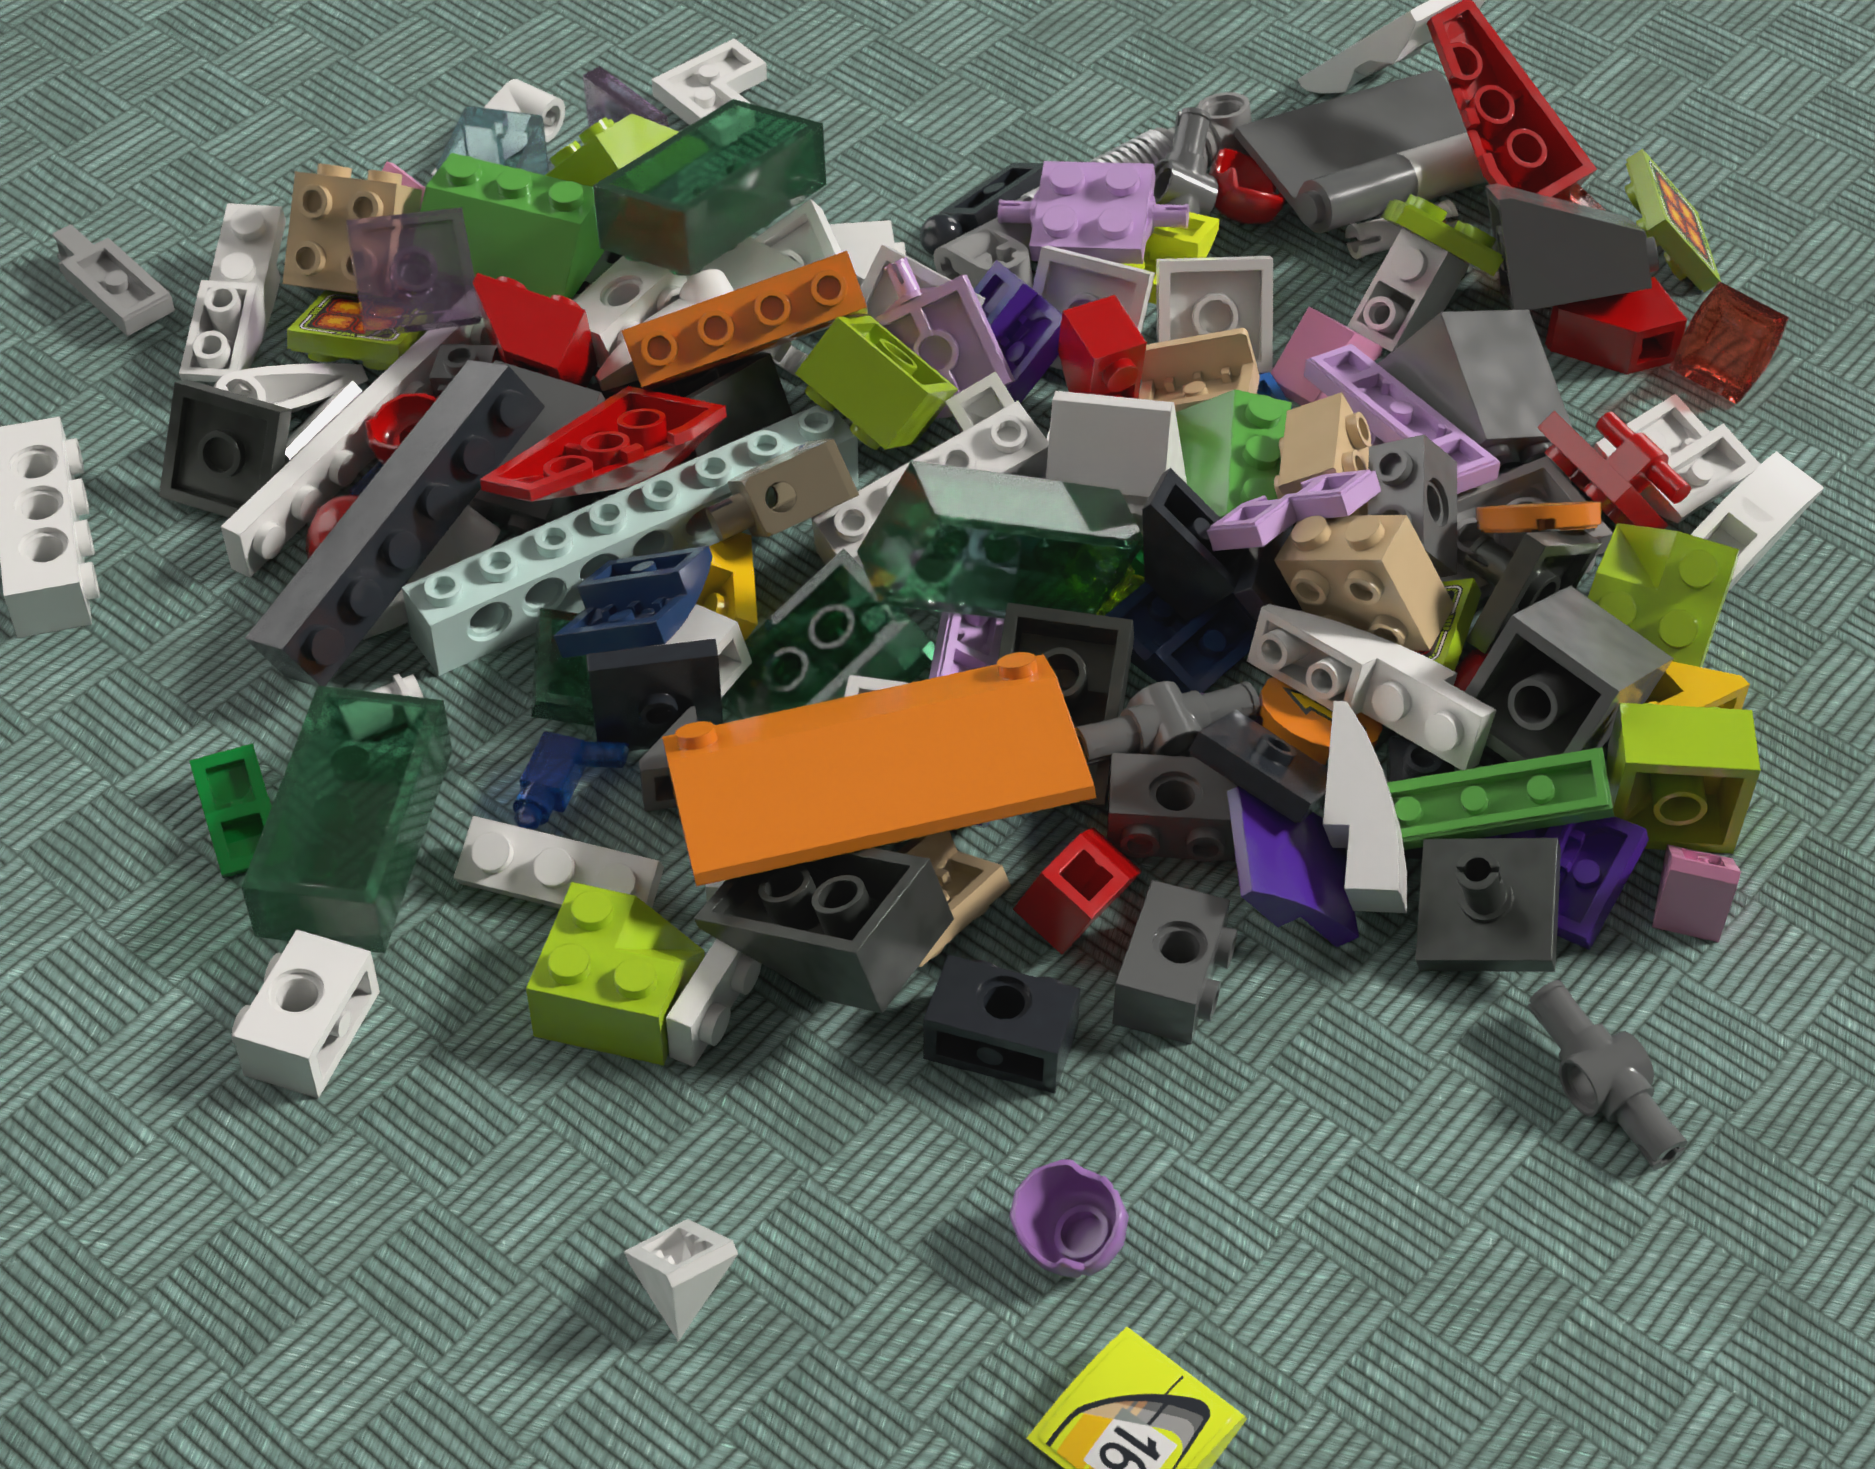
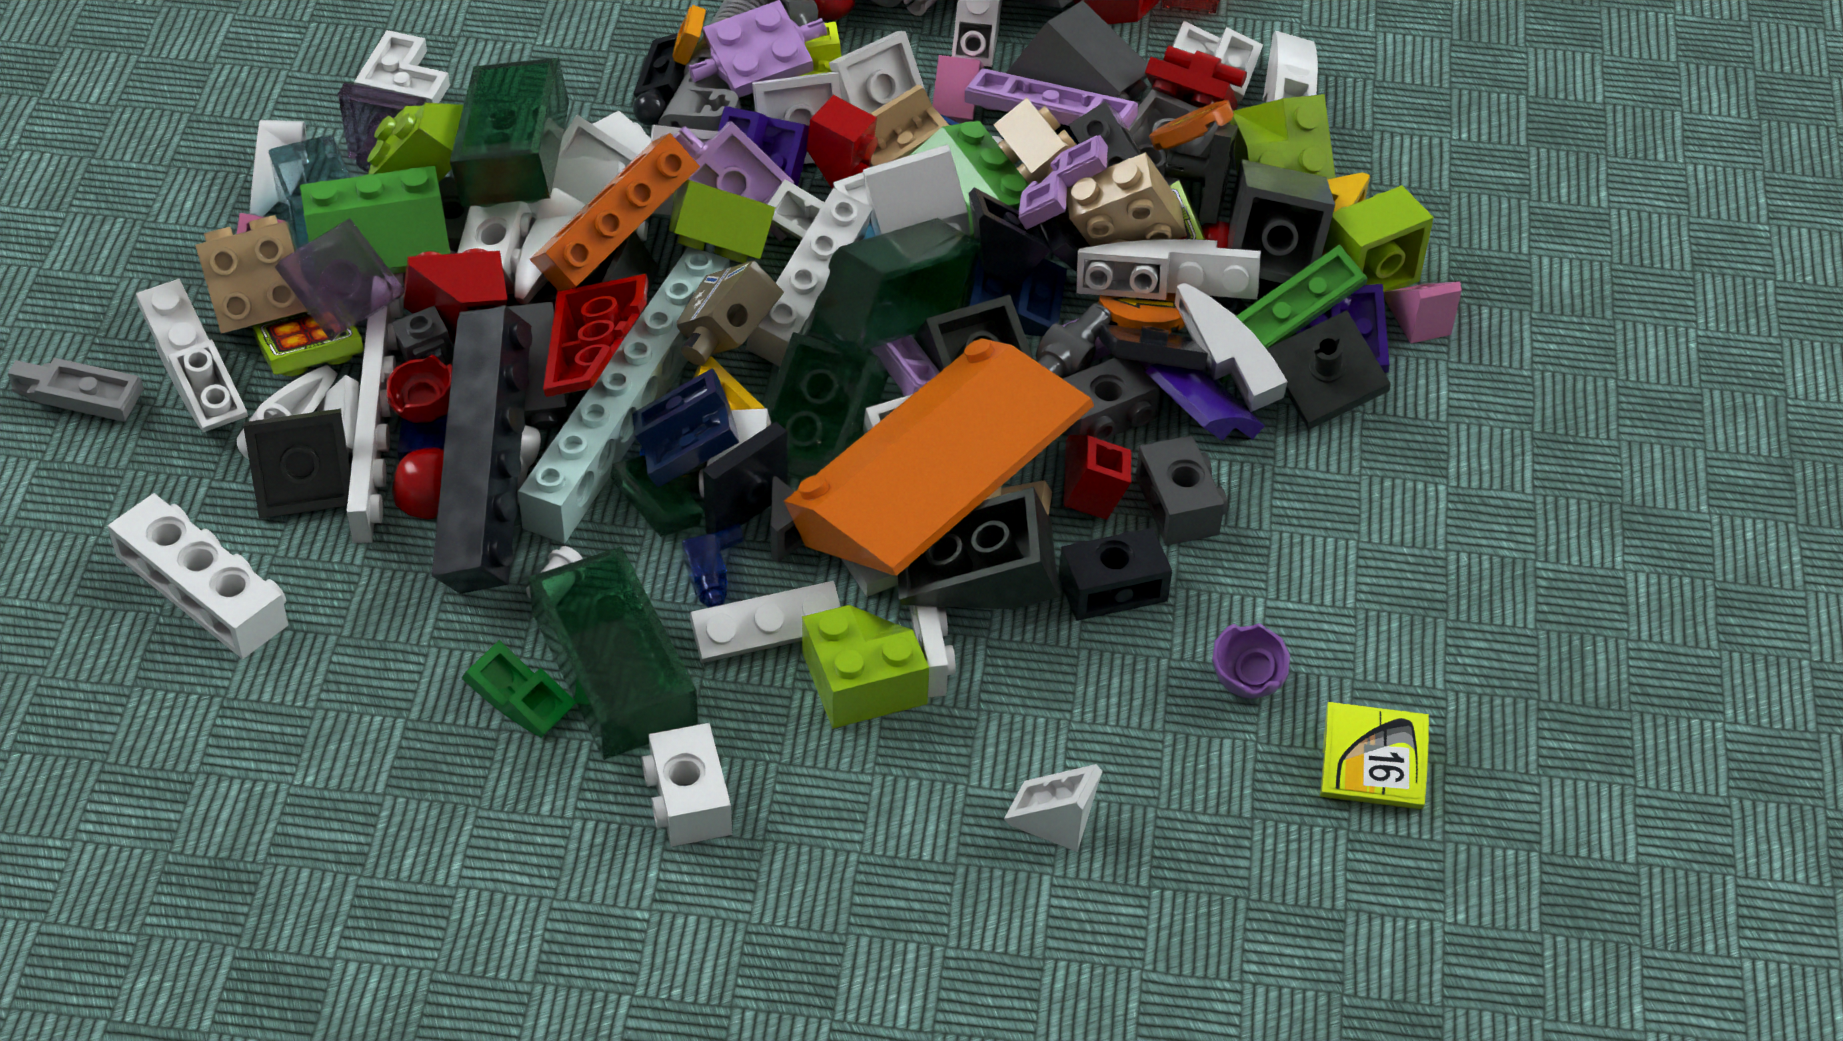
camera: 35 degrees left, 0 degrees up
(1028, 165) = (688, 34): none -> light orange tile
(1607, 1074) = (1459, 434): dark grey pin -> none

